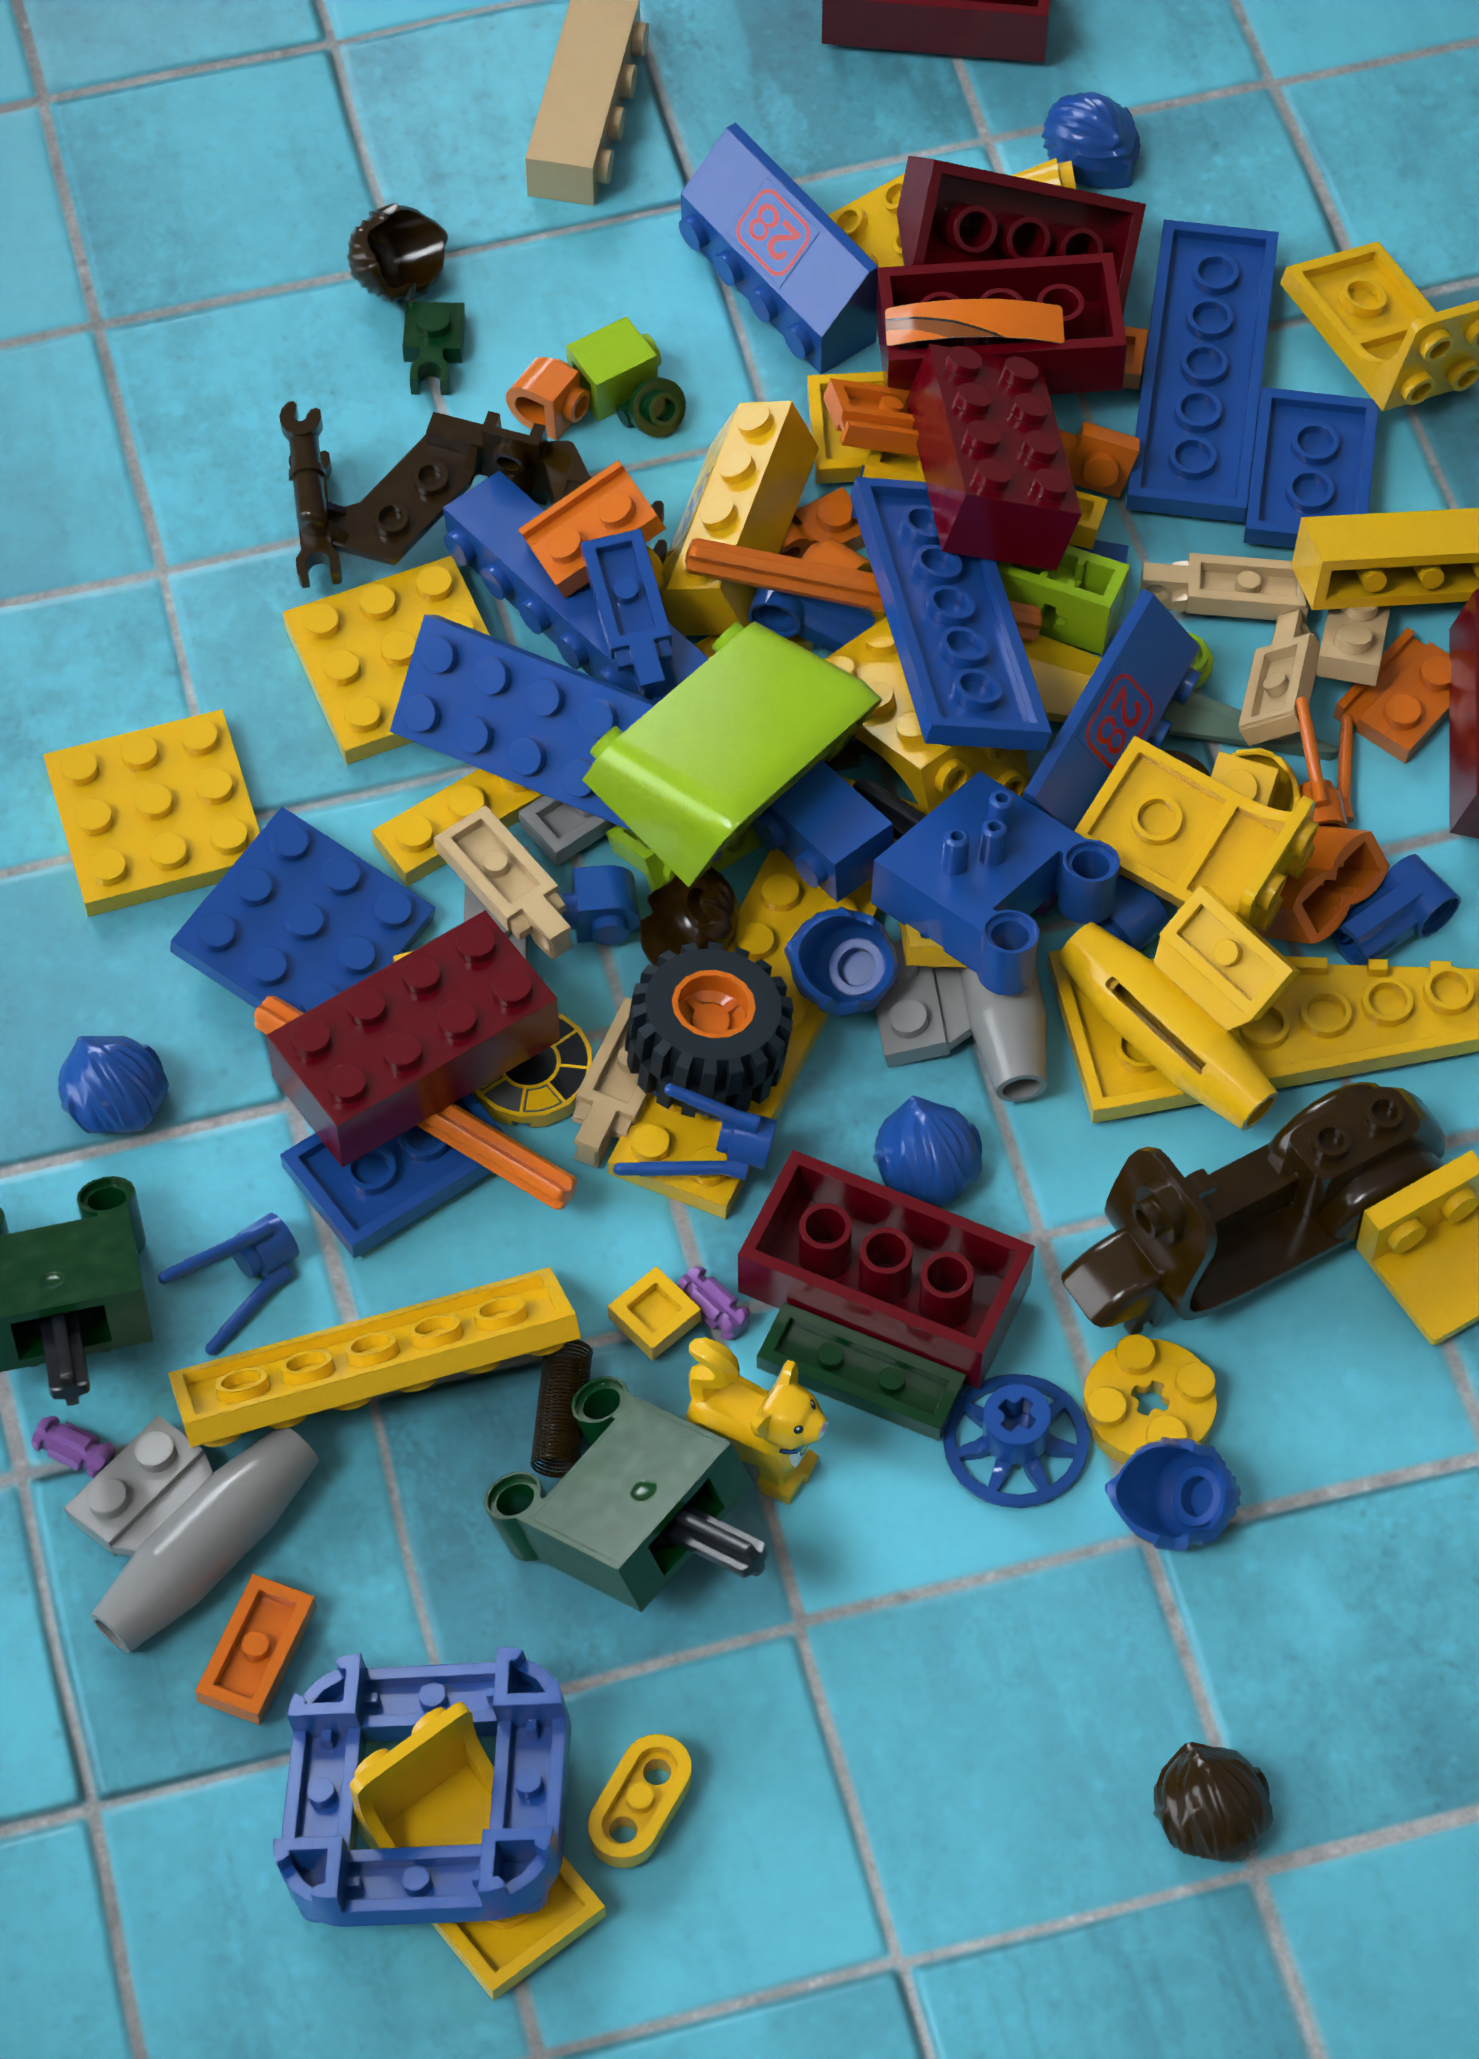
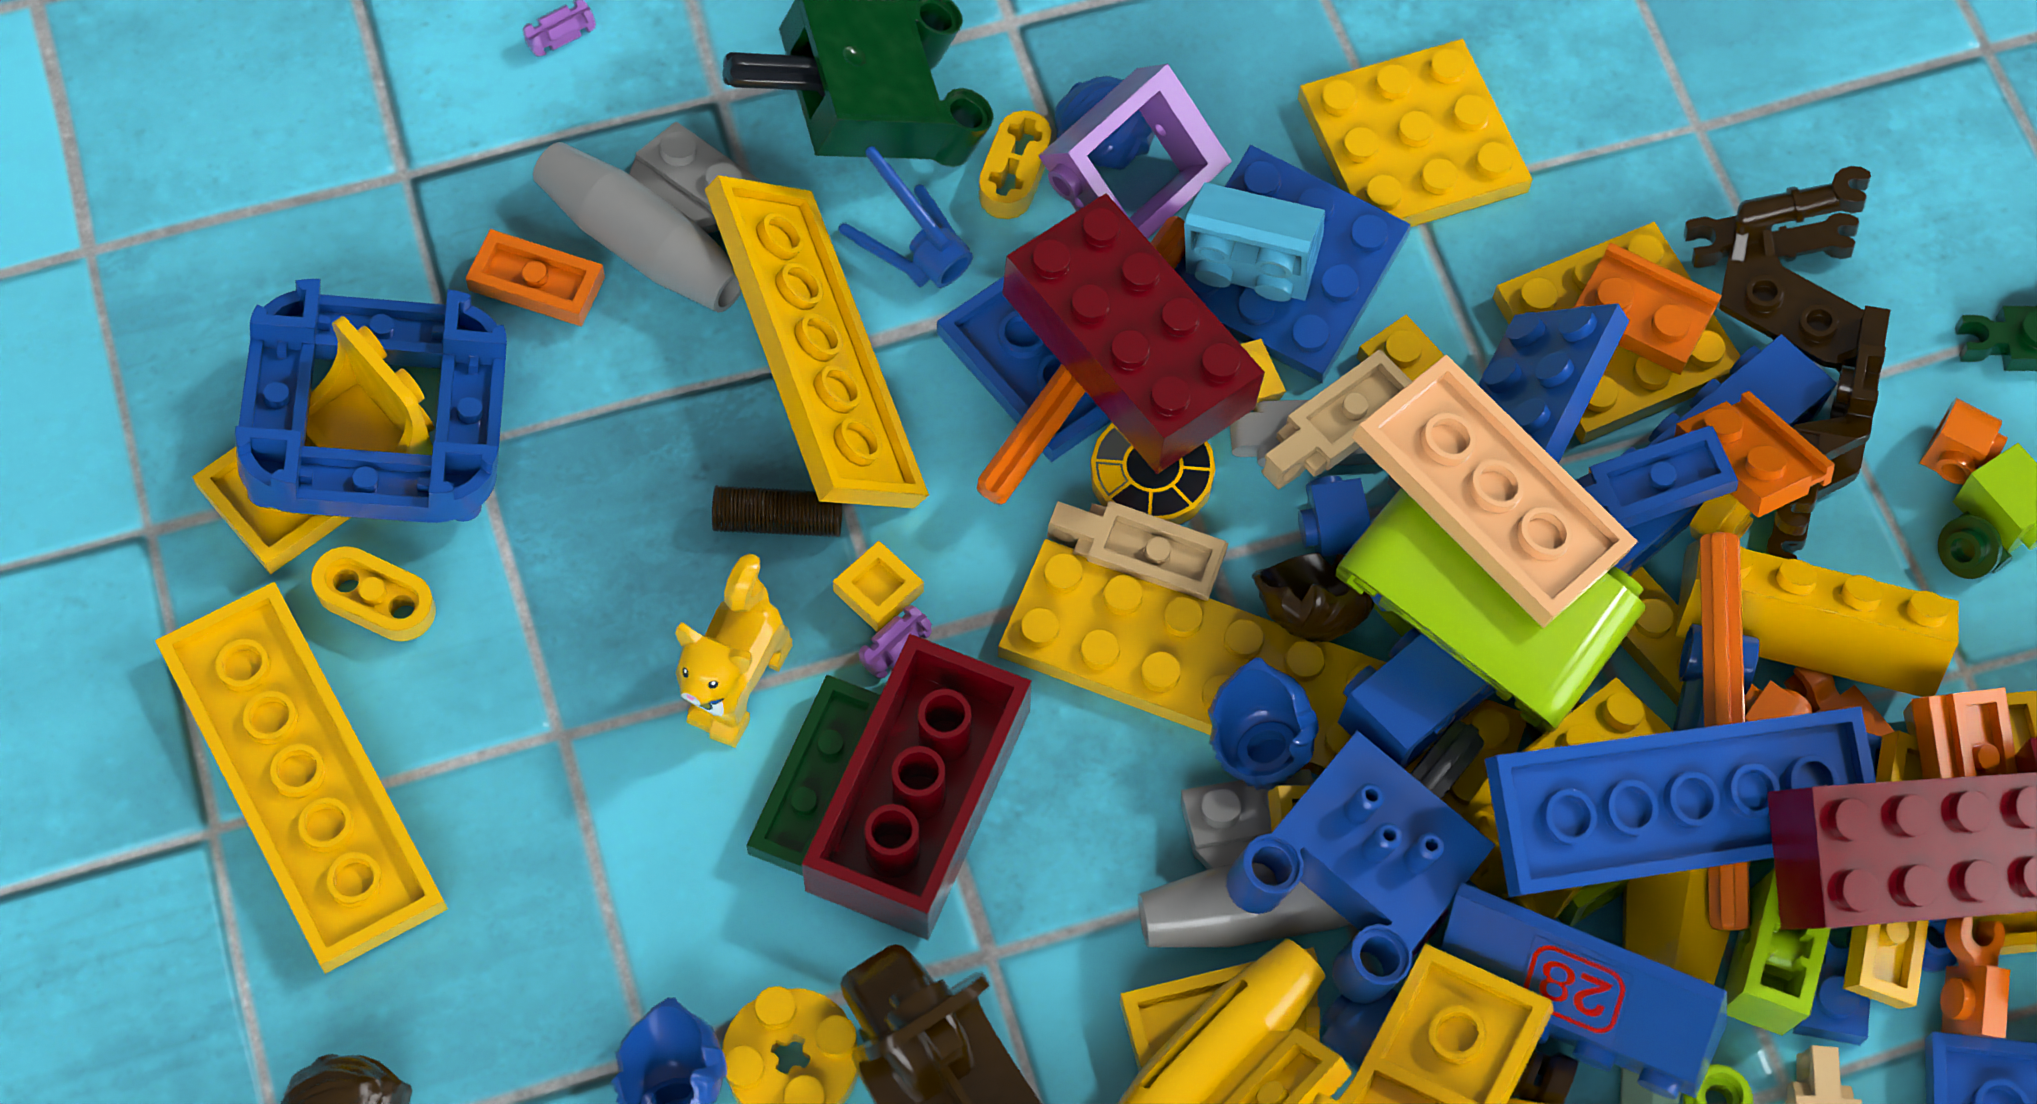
camera: 85 degrees right, 5 degrees up
(72, 1446) = (739, 125): medium lavender piece -> none
(130, 1028) = (1175, 123): none -> medium lavender window
(153, 1172) = (1003, 160): none -> yellow beam
(309, 926) = (1252, 242): none -> medium azure slope
(385, 618) = (1662, 307): none -> orange plate
(632, 1502) = (646, 554): piece -> none
(660, 702) = (1494, 490): none -> light nougat plate
(709, 1027) = (1167, 599): black wheel -> none
(742, 1136) = (1055, 646): blue plant -> none
(845, 1866) = (301, 777): none -> yellow plate
(928, 1151) = (1069, 834): blue hair -> none
(1016, 1433) = (750, 924): blue wheel -> none

